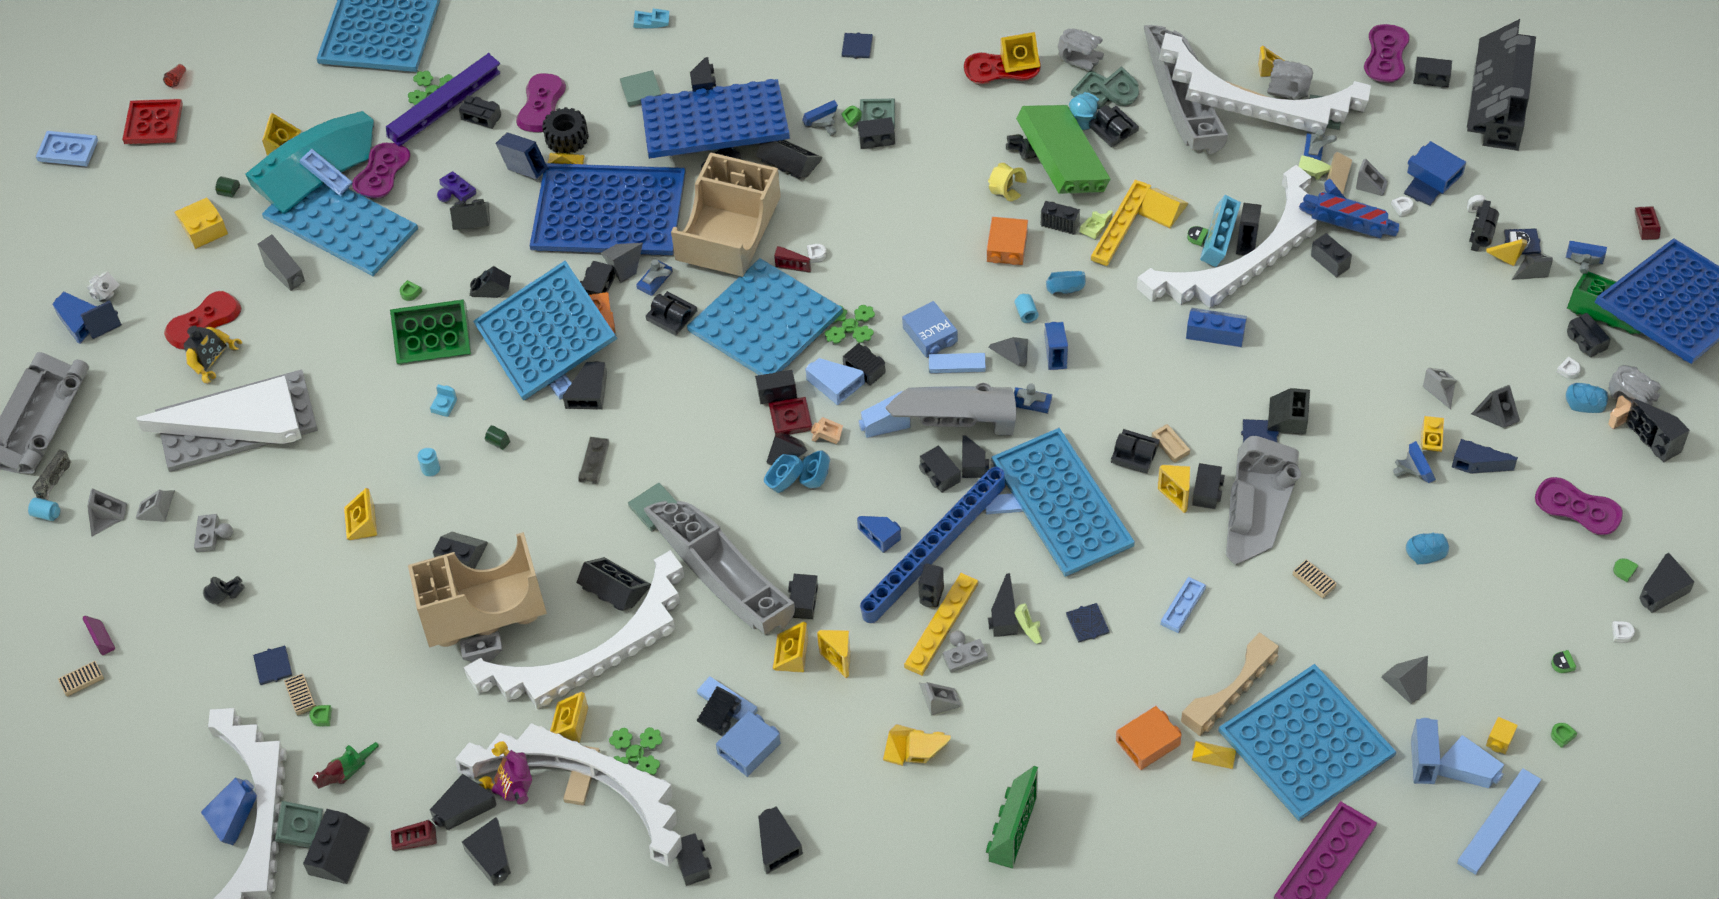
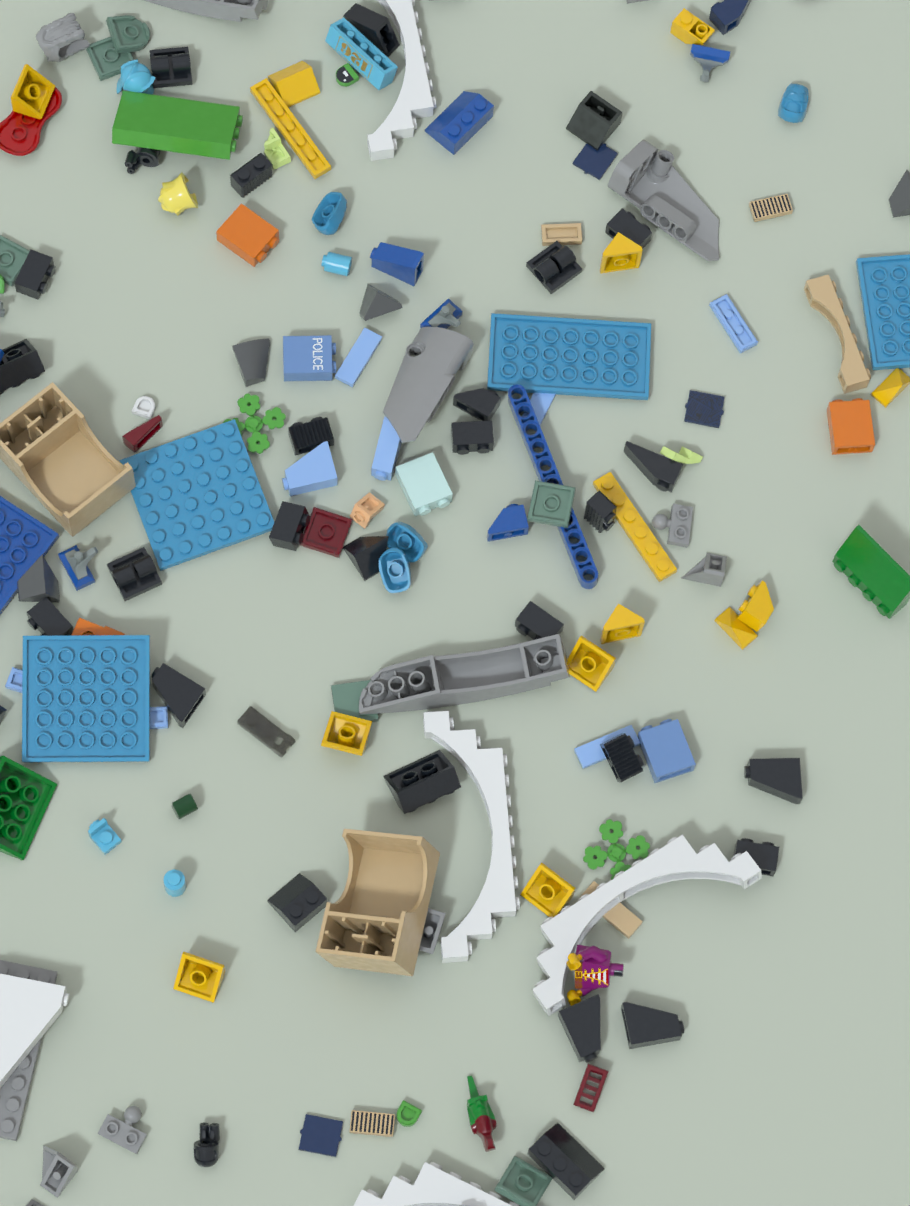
camera: 70 degrees left, 15 degrees up
(619, 510) = (346, 733): none -> yellow slope
(874, 457) = (424, 484): none -> light aqua brick
(903, 297) = (252, 360): none -> dark grey slope
(912, 546) = (551, 504): none -> sand green tile

